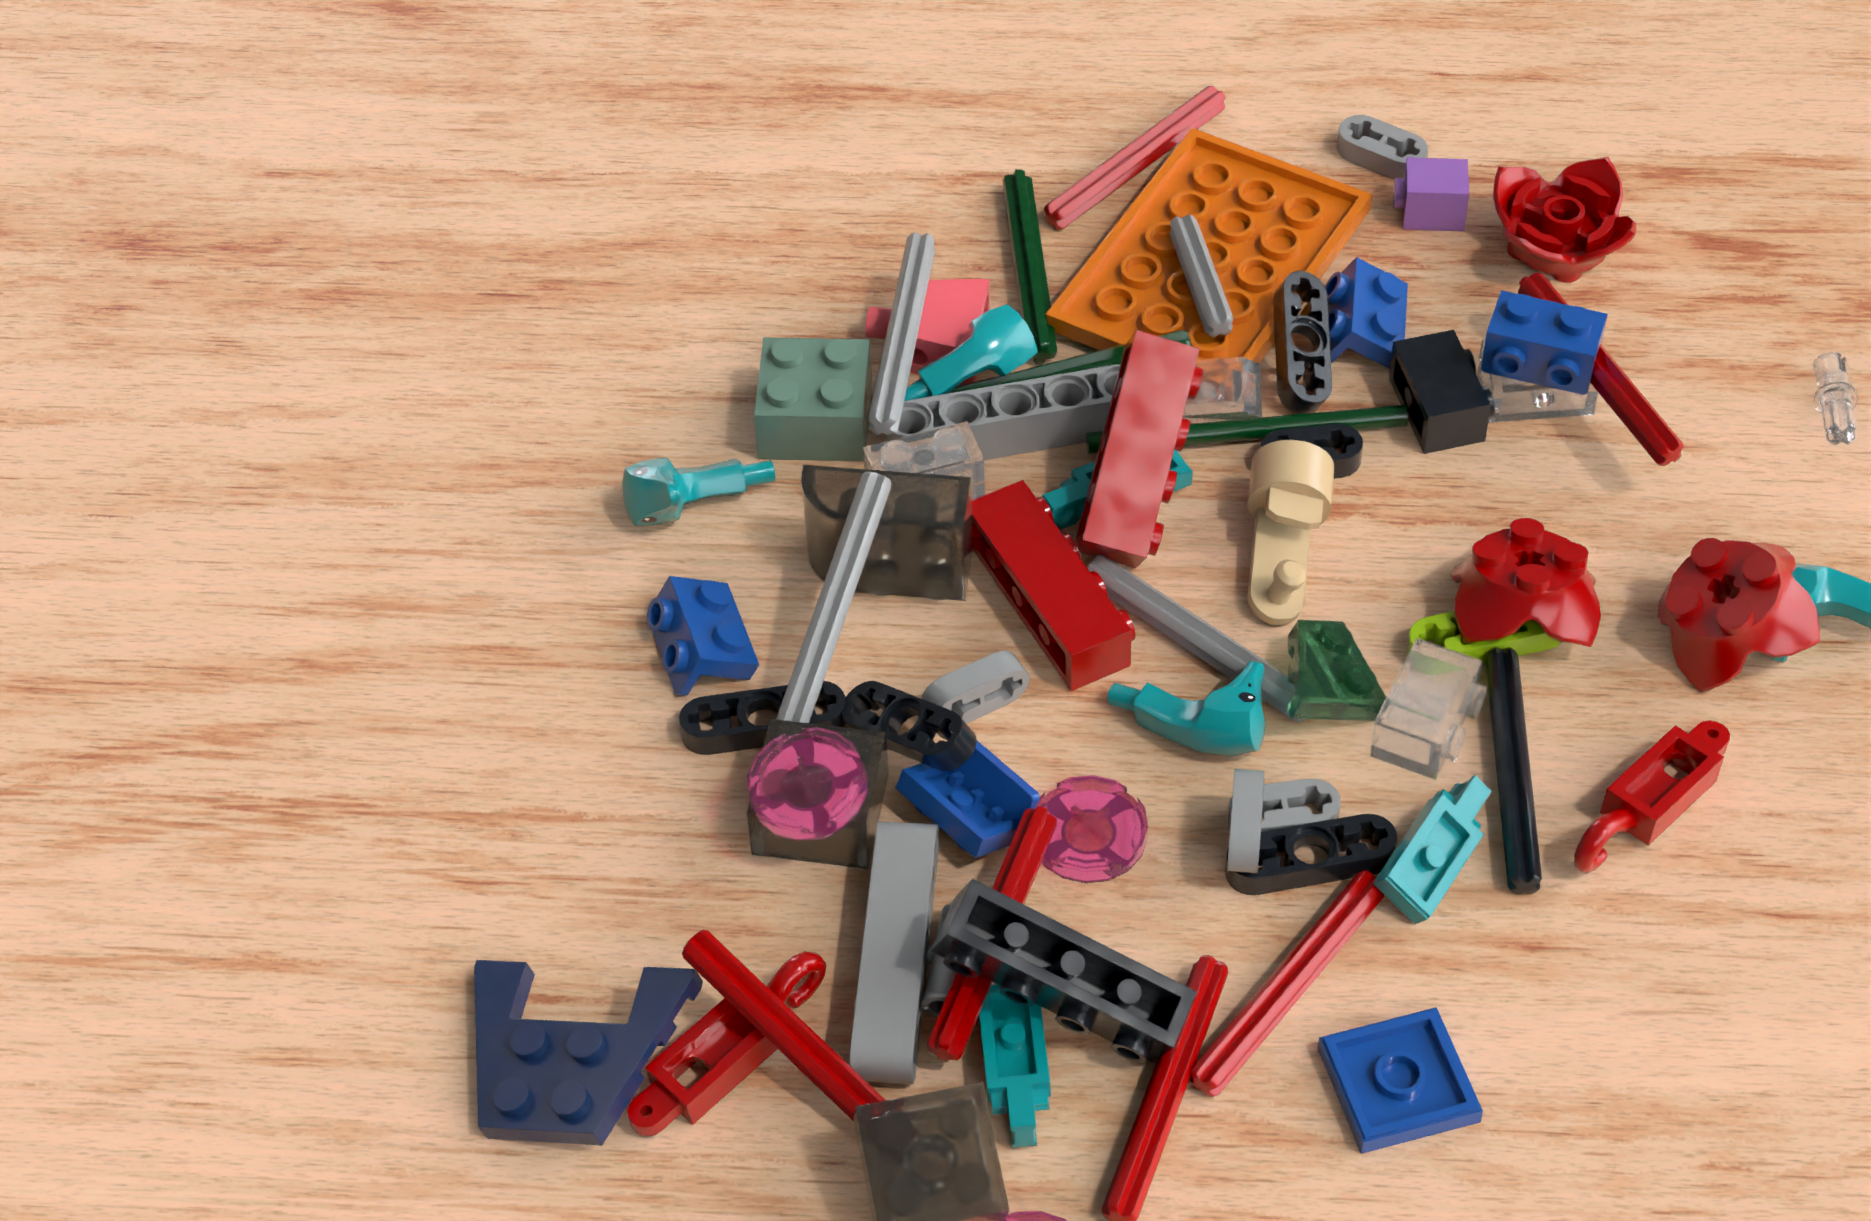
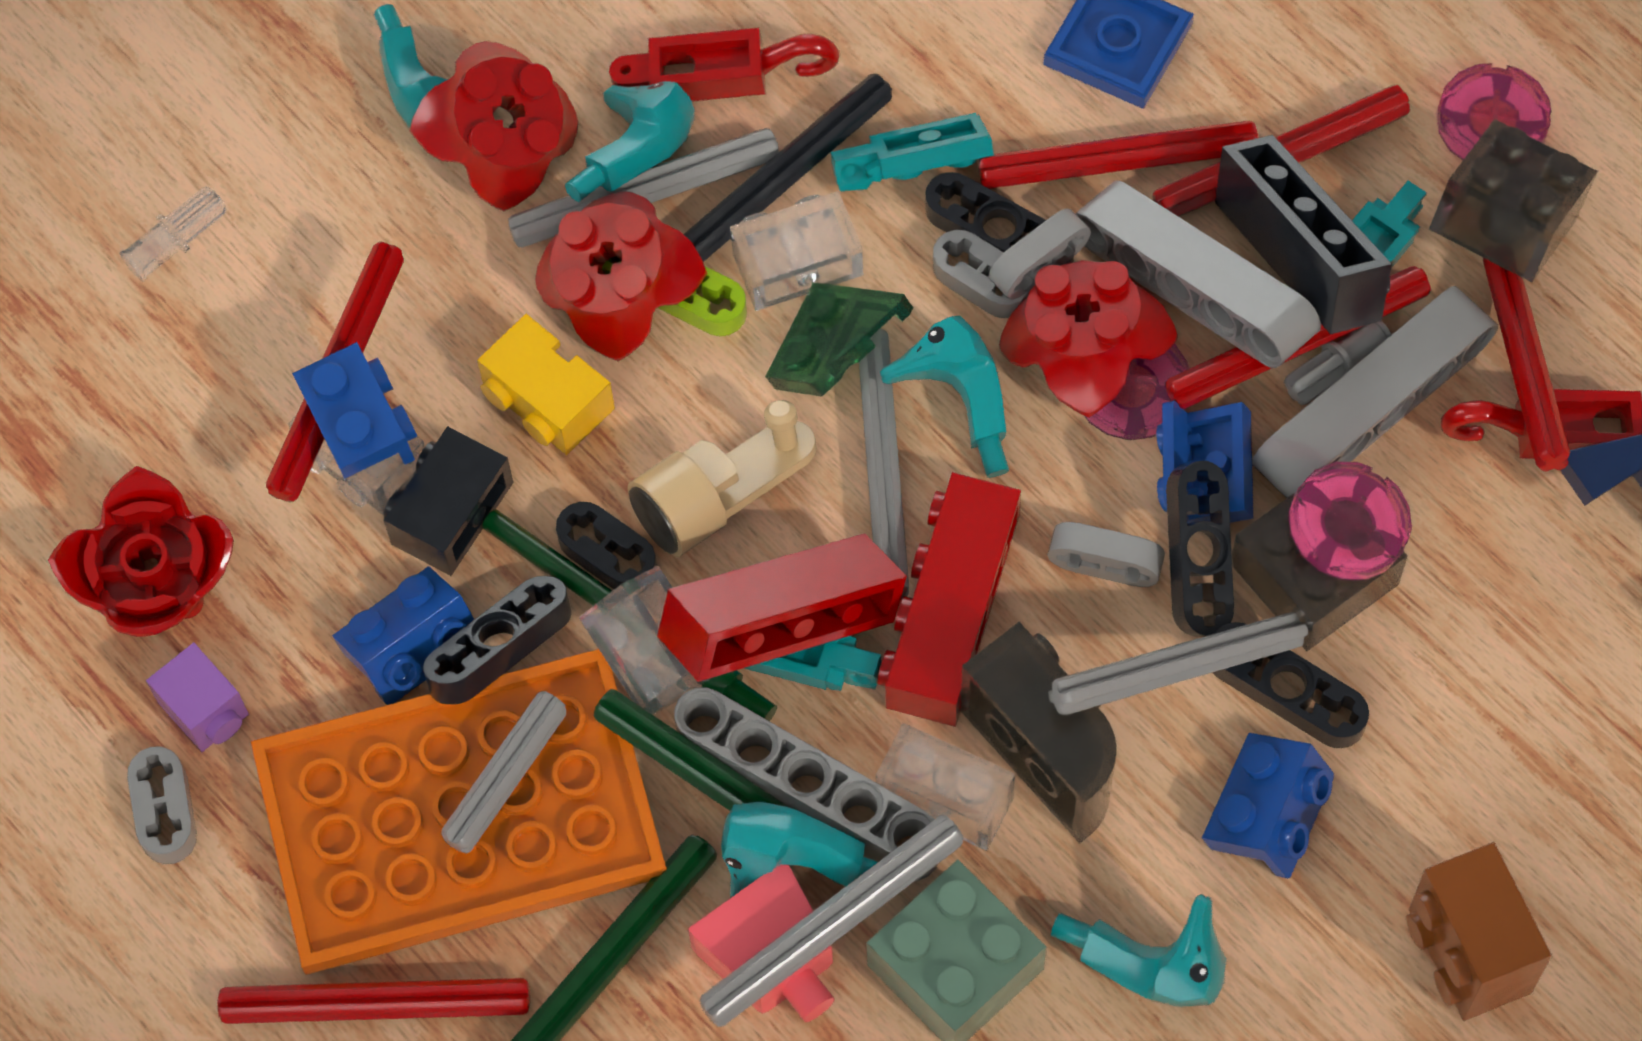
camera: 135 degrees left, 15 degrees up
(474, 632) = (1477, 932): none -> dark orange brick
(1128, 896) = (1199, 275): none -> light grey beam
(1155, 810) = (1090, 359): none -> red brick
(1471, 494) = (552, 396): none -> yellow brick
(1588, 679) = (655, 183): none -> light grey axle
(1632, 706) = (659, 125): none -> teal animal

